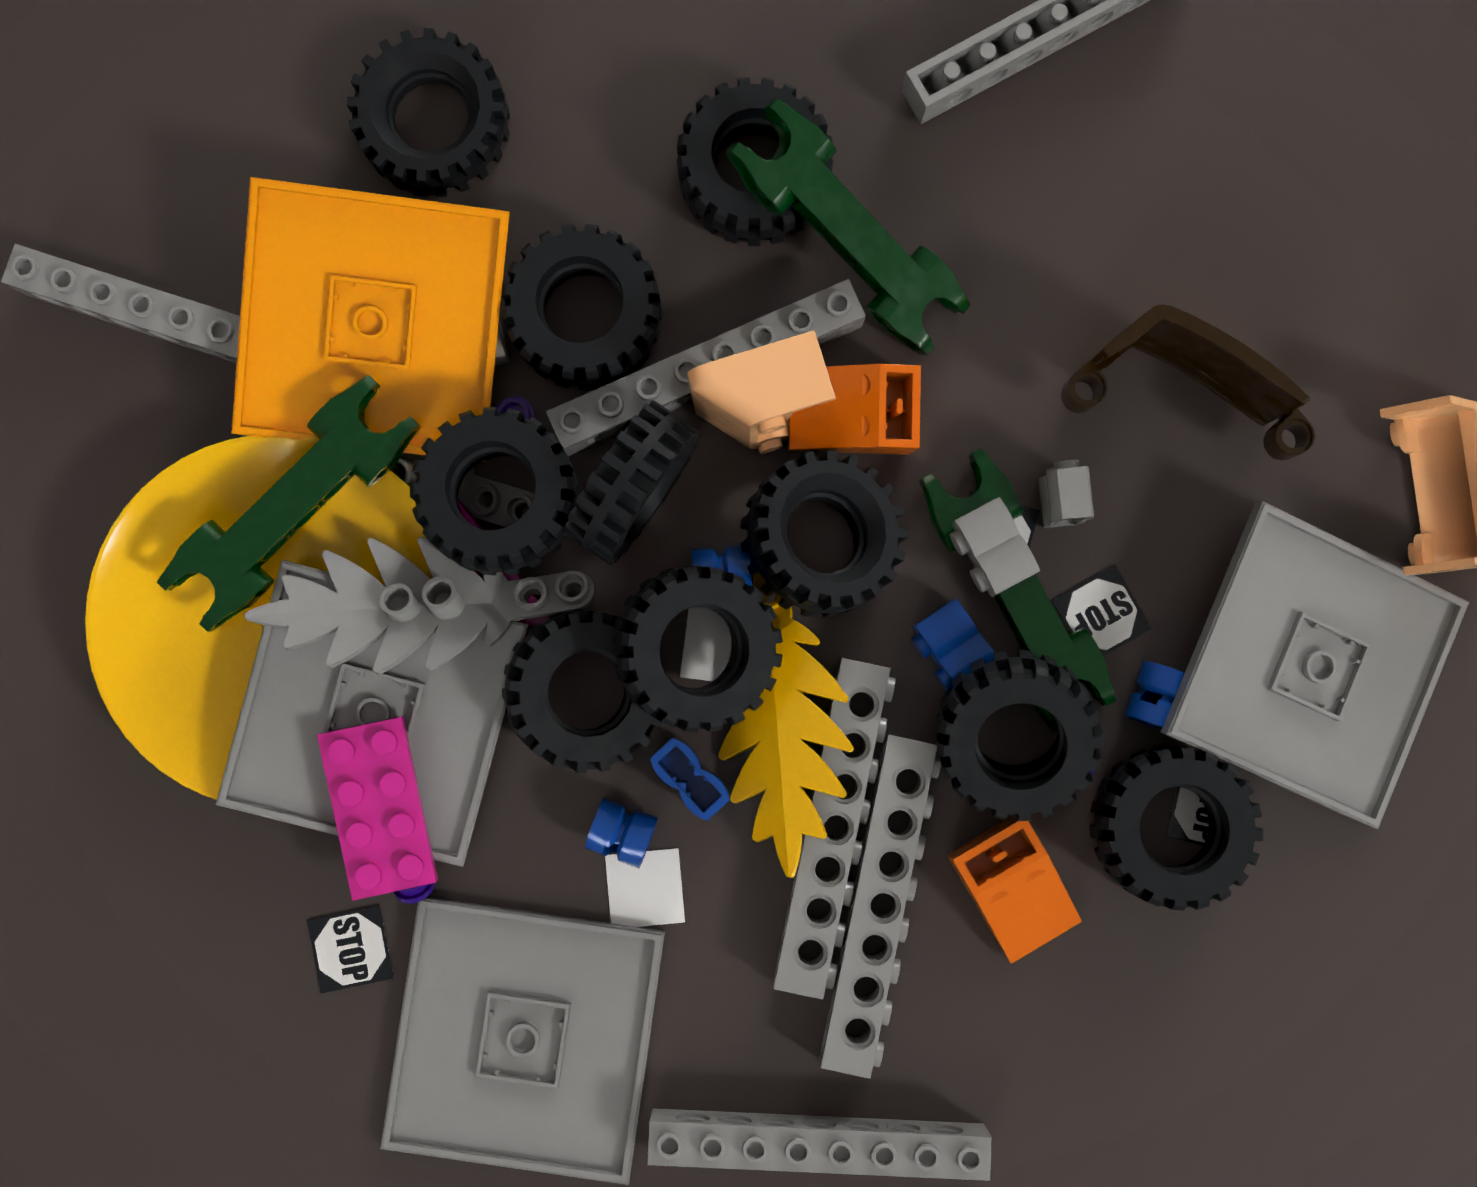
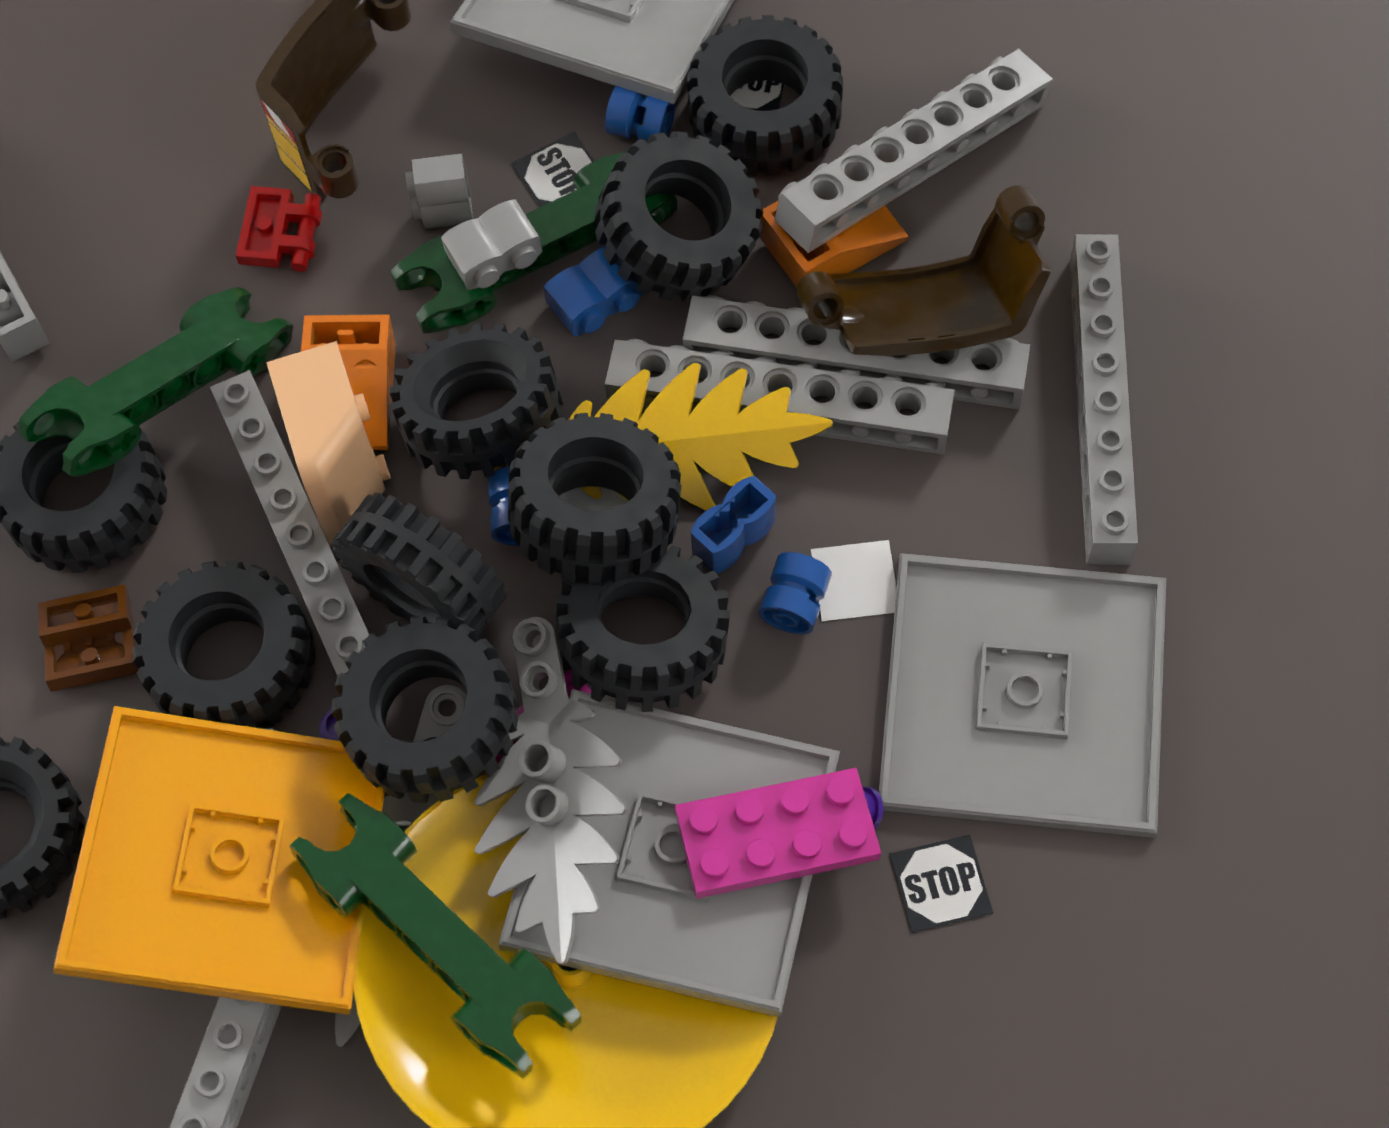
camera: 90 degrees left, 20 degrees down
(613, 184) = (87, 637): none -> reddish brown slope
(925, 993) = (943, 302): none -> dark brown panel
(1042, 324) = (266, 225): none -> red plate
(1184, 1095) = (911, 150): none -> light grey brick

